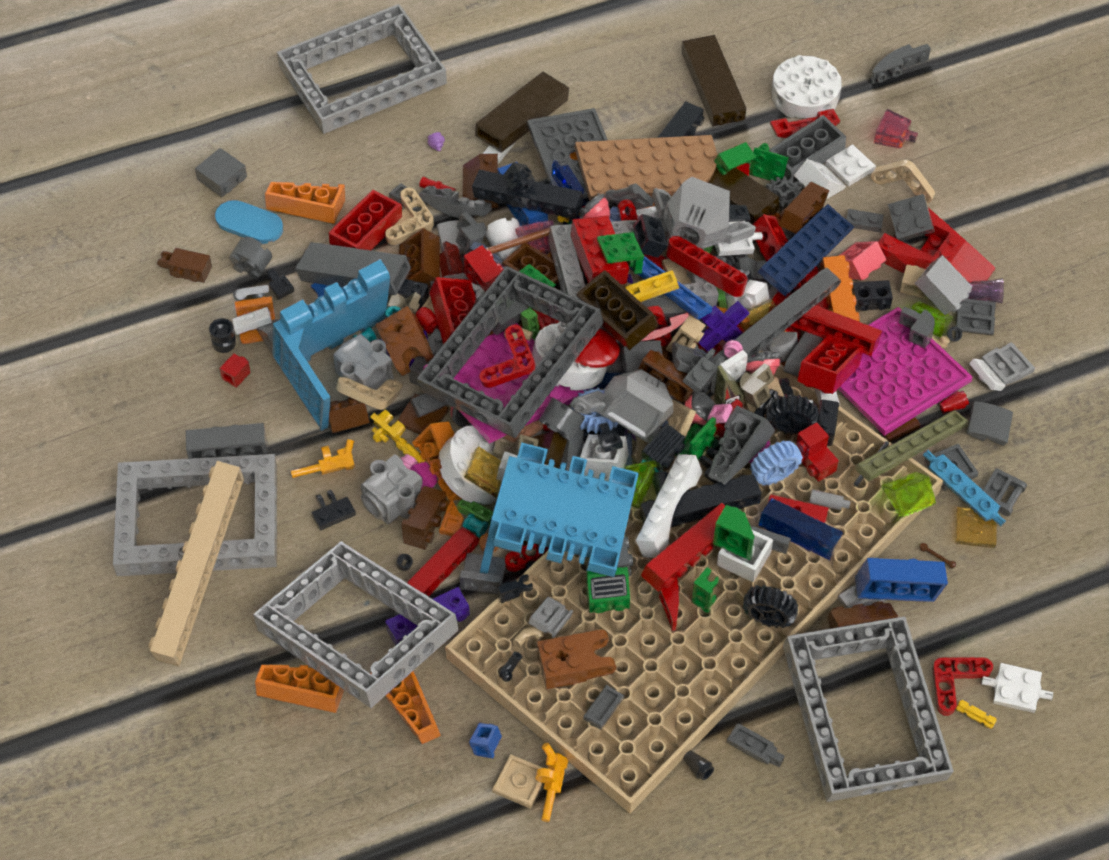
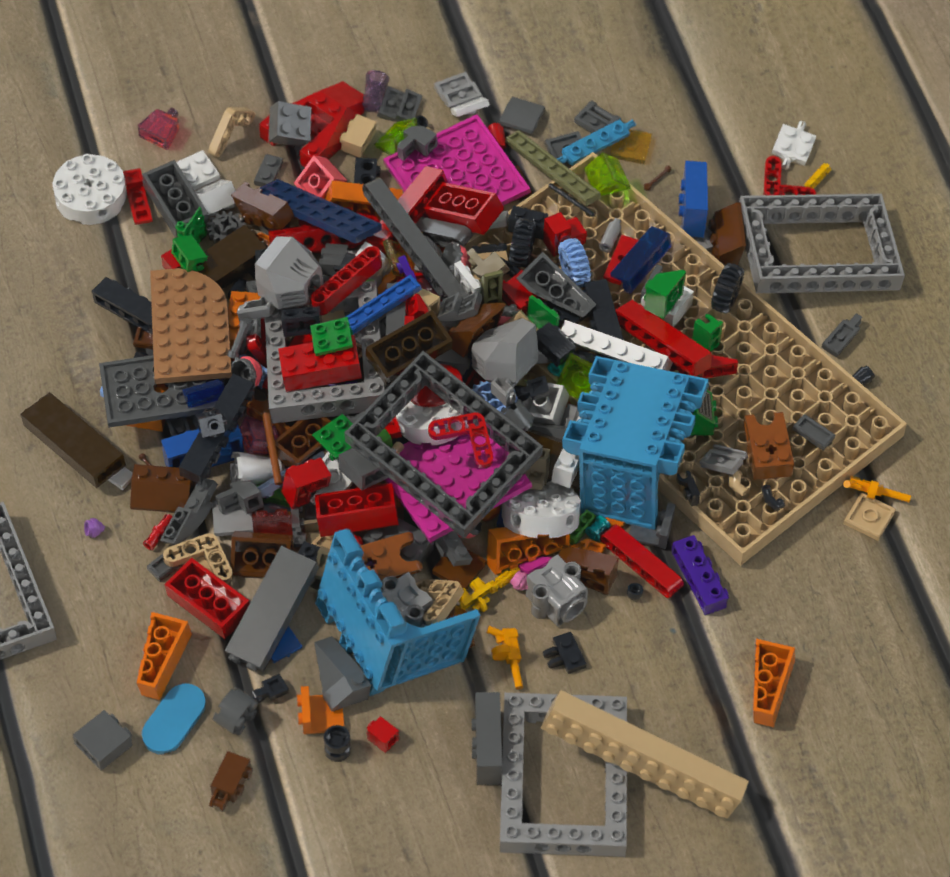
camera: 85 degrees left, 0 degrees up
(251, 320) = (322, 711): white plate -> none
(258, 291) = (281, 706): plate -> none
(413, 708) = (786, 594): orange wedge -> none
(434, 623) = (726, 548): light grey brick -> none
(483, 471) = (560, 495): clear yellow tile -> none
(485, 740) = (826, 530): blue brick -> none
(654, 286) = (378, 315): yellow plate -> none
(702, 372) = (482, 291): dark grey hinge -> none
(713, 80) = (60, 267): dark brown brick -> none
(720, 412) = (519, 295): bright pink tile -> none
(732, 348) = (446, 274): bright pink plate -> none
(893, 63) = (70, 111): dark grey slope -> none
(944, 285) = (376, 112): light grey brick -> none

